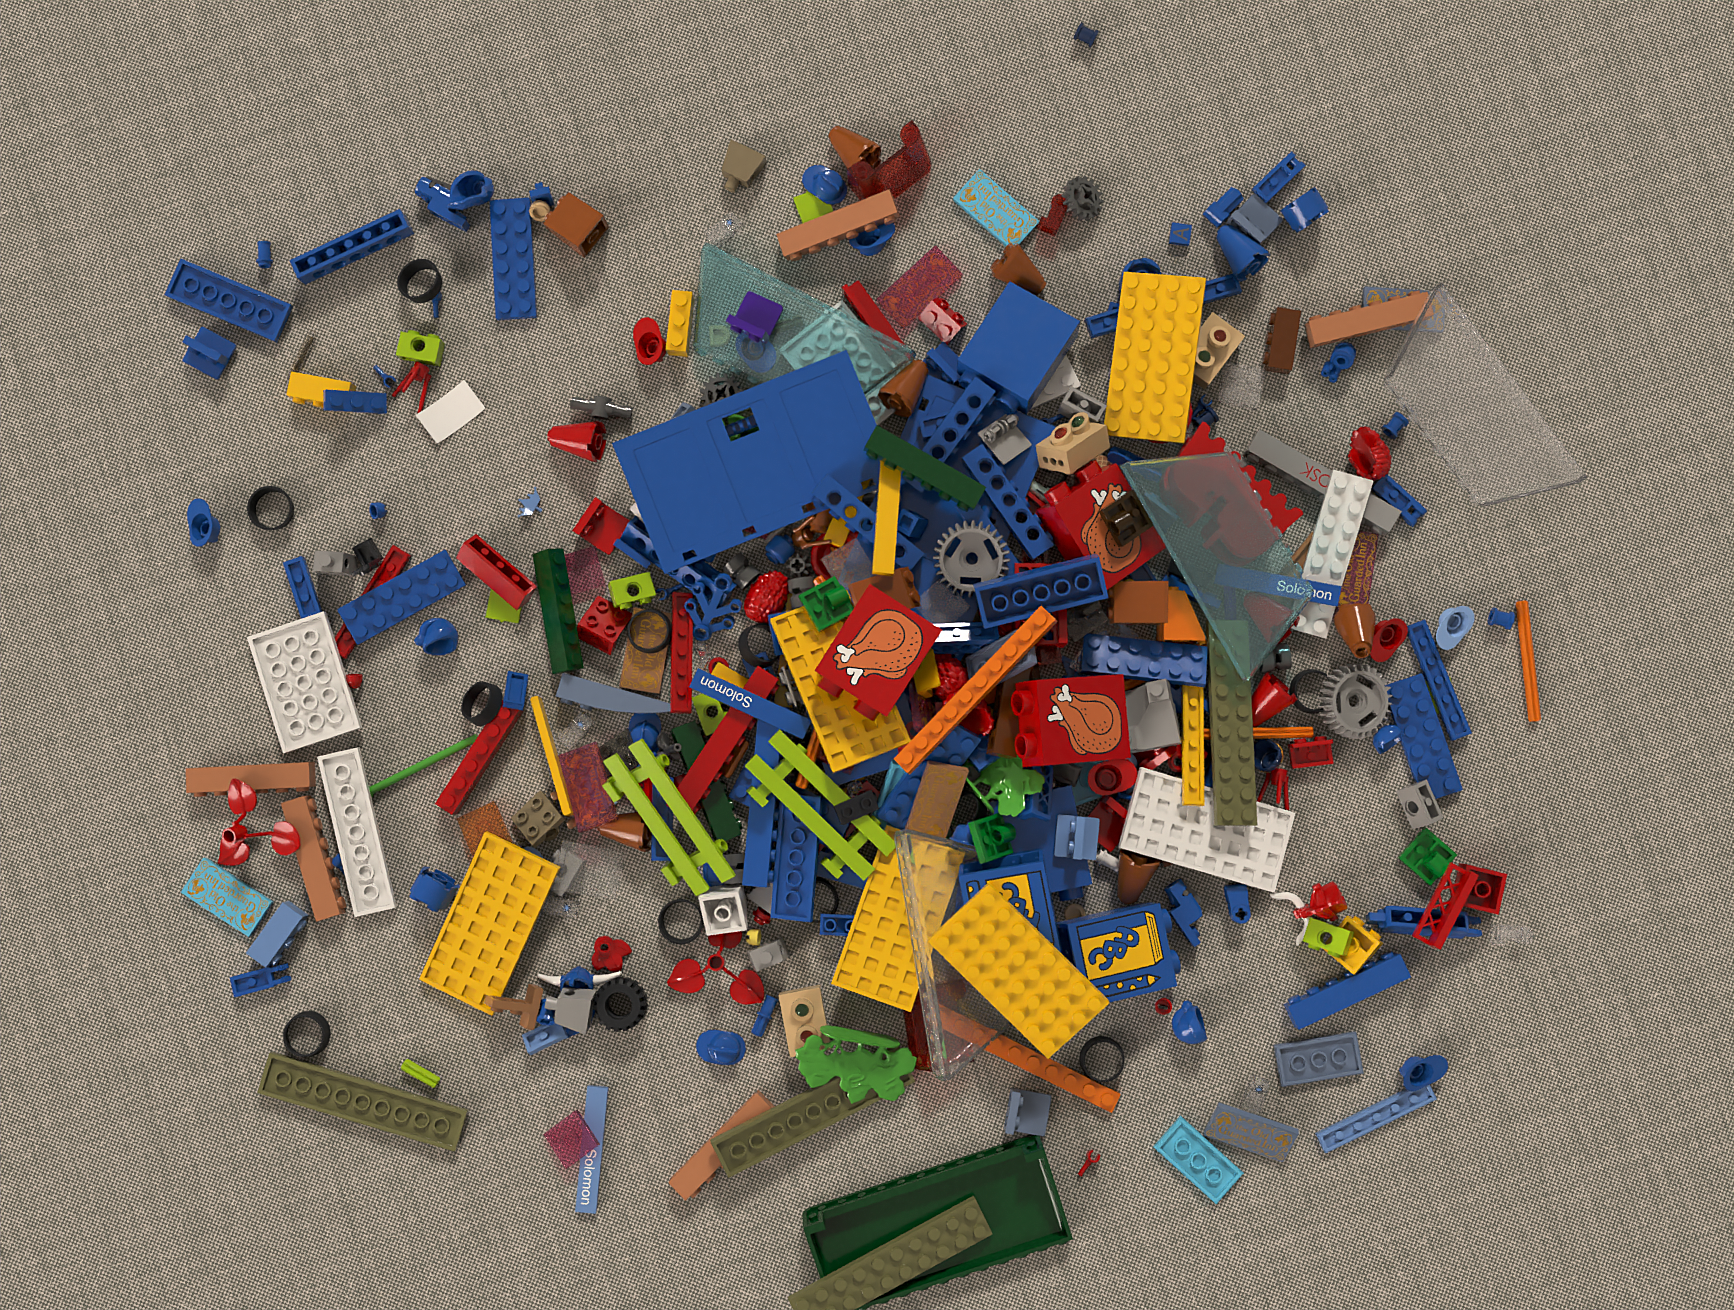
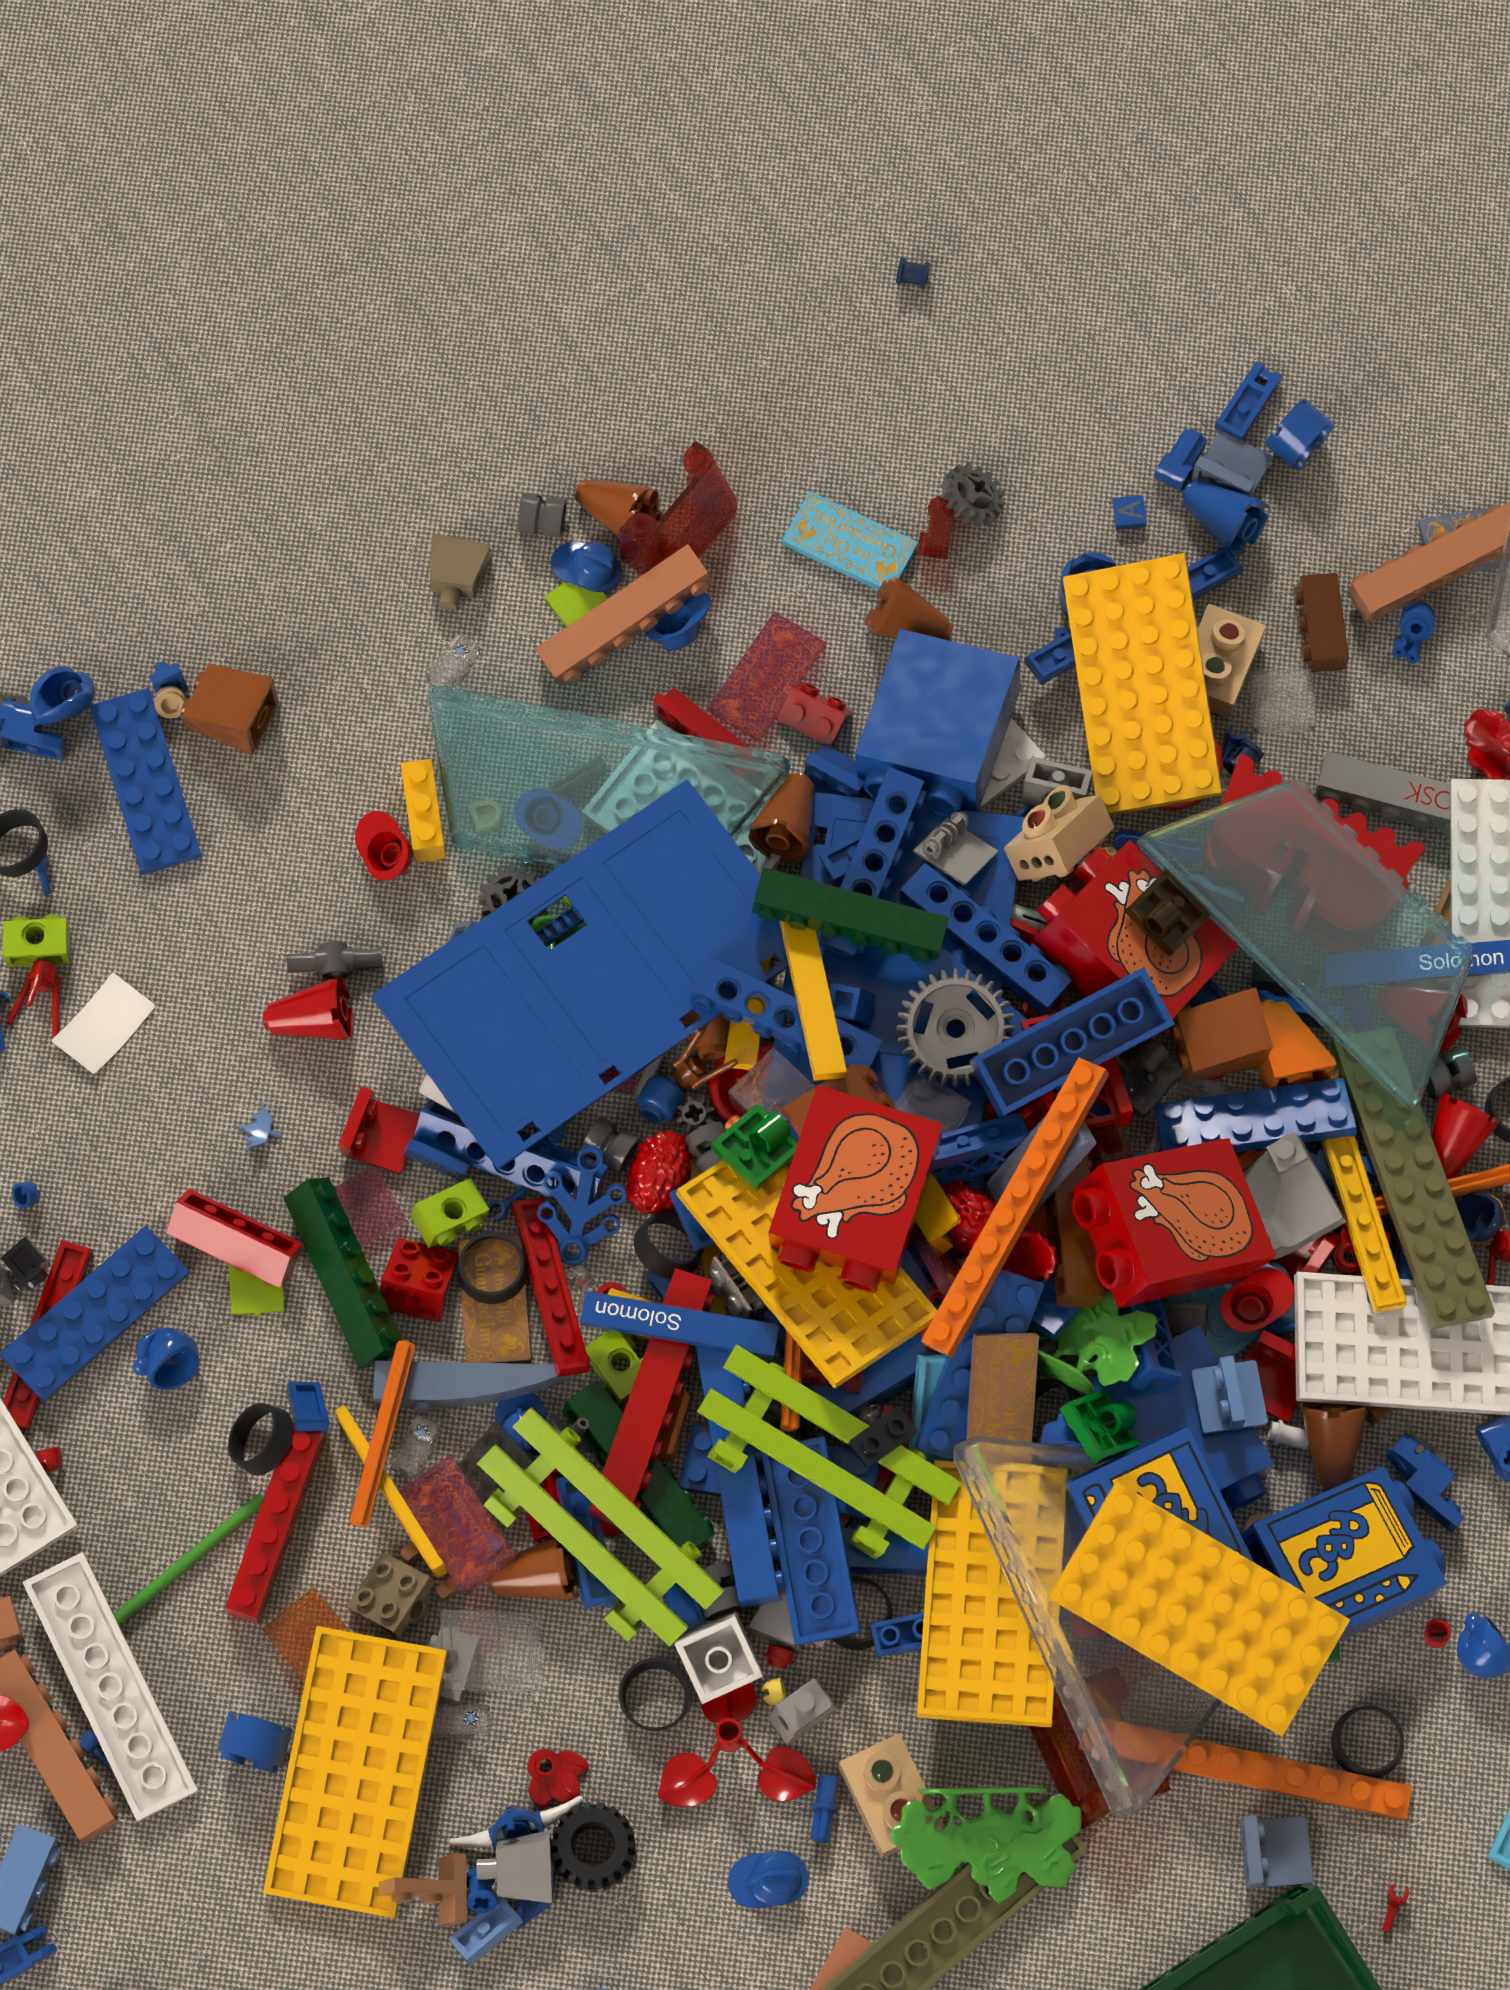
camera: 20 degrees left, 15 degrees down
(554, 722) = (382, 1434): none -> orange axle
(755, 317) = (538, 769): dark purple bracket -> none
(804, 143) = (542, 515): none -> dark grey wheel

